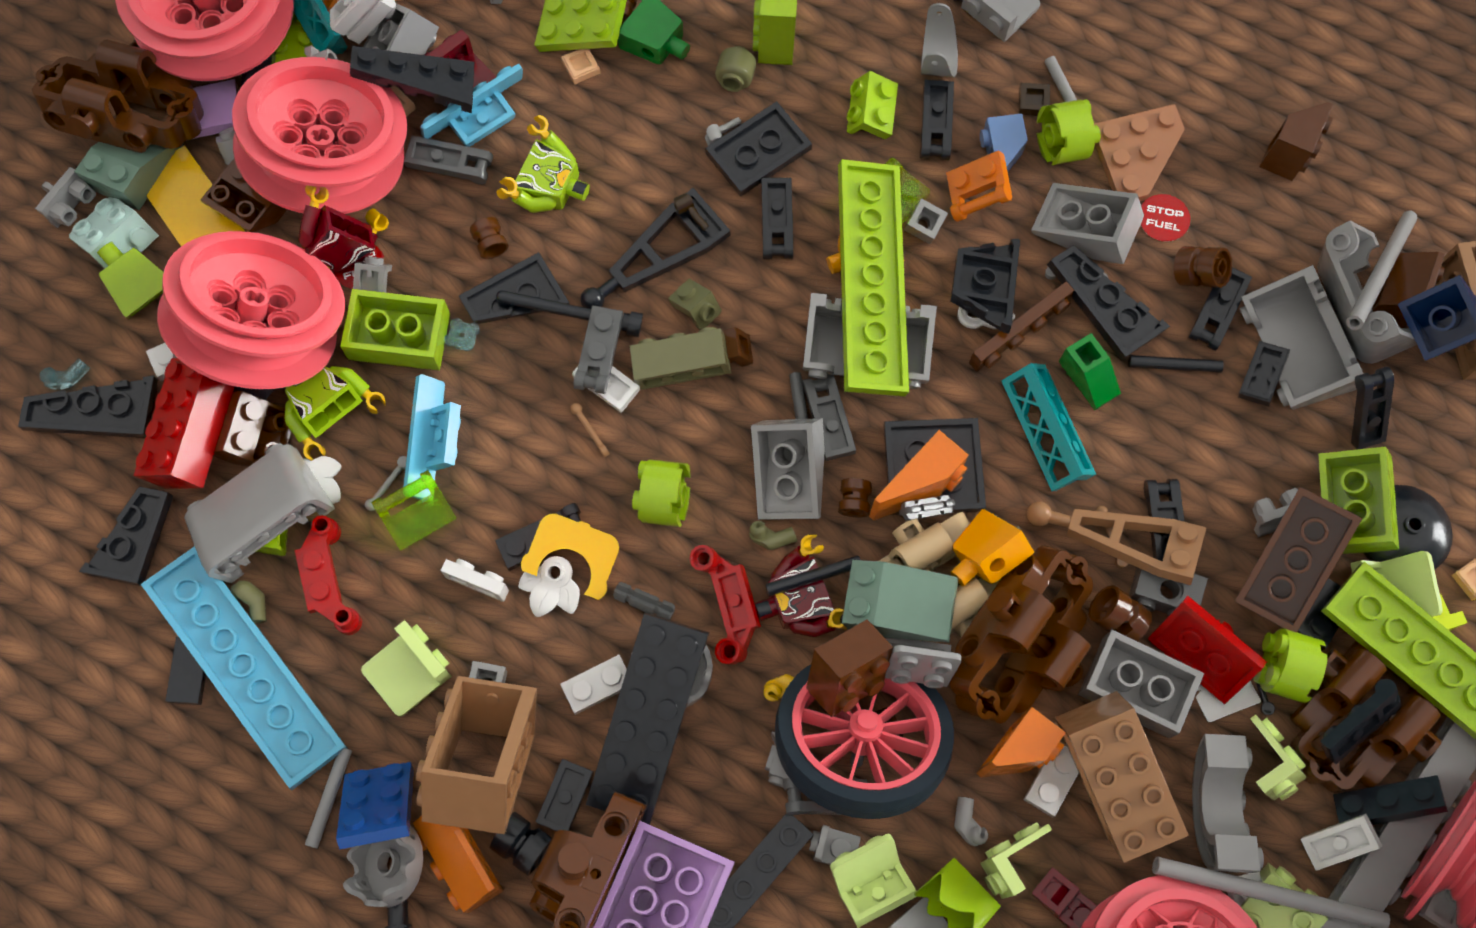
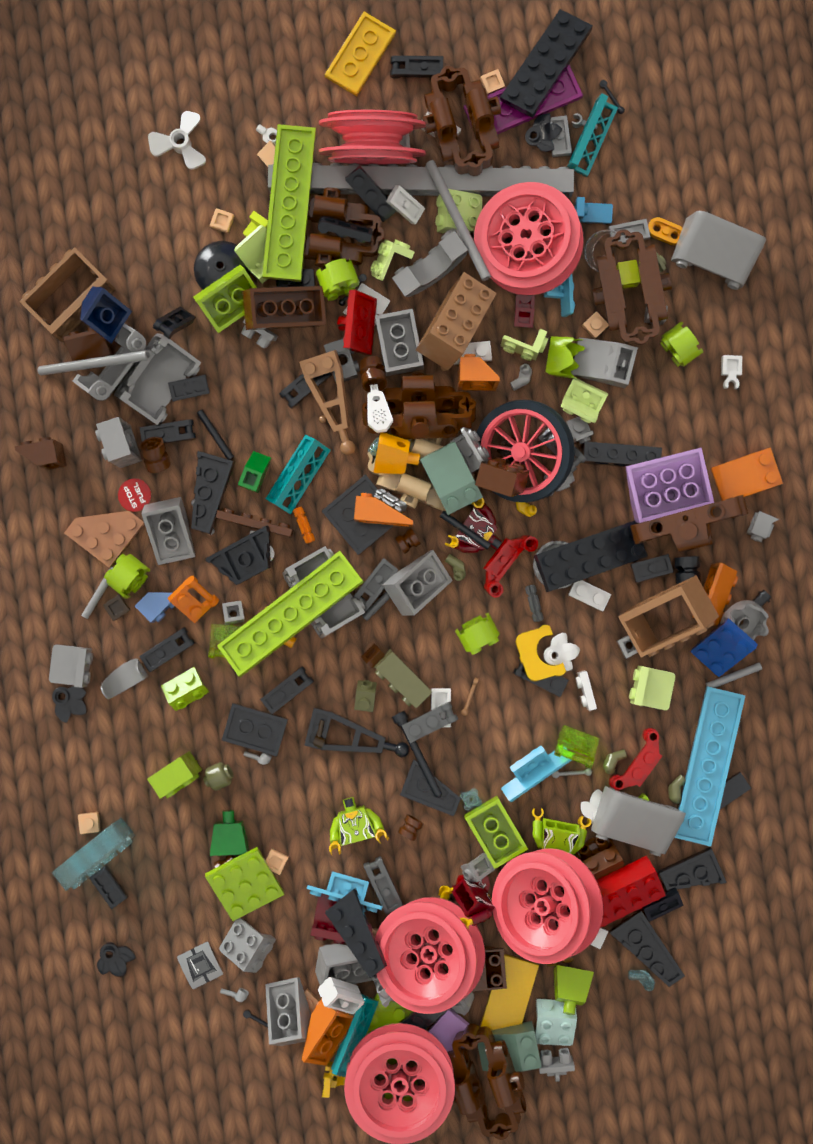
camera: 125 degrees left, 15 degrees up
(121, 482) = (664, 905): none -> black plate
(359, 545) = (611, 760): none -> olive arm
(974, 386) = (304, 525): none -> orange axle
(1064, 571) = (378, 411): none -> white piece
(1254, 227) = (118, 442): none -> light grey brick

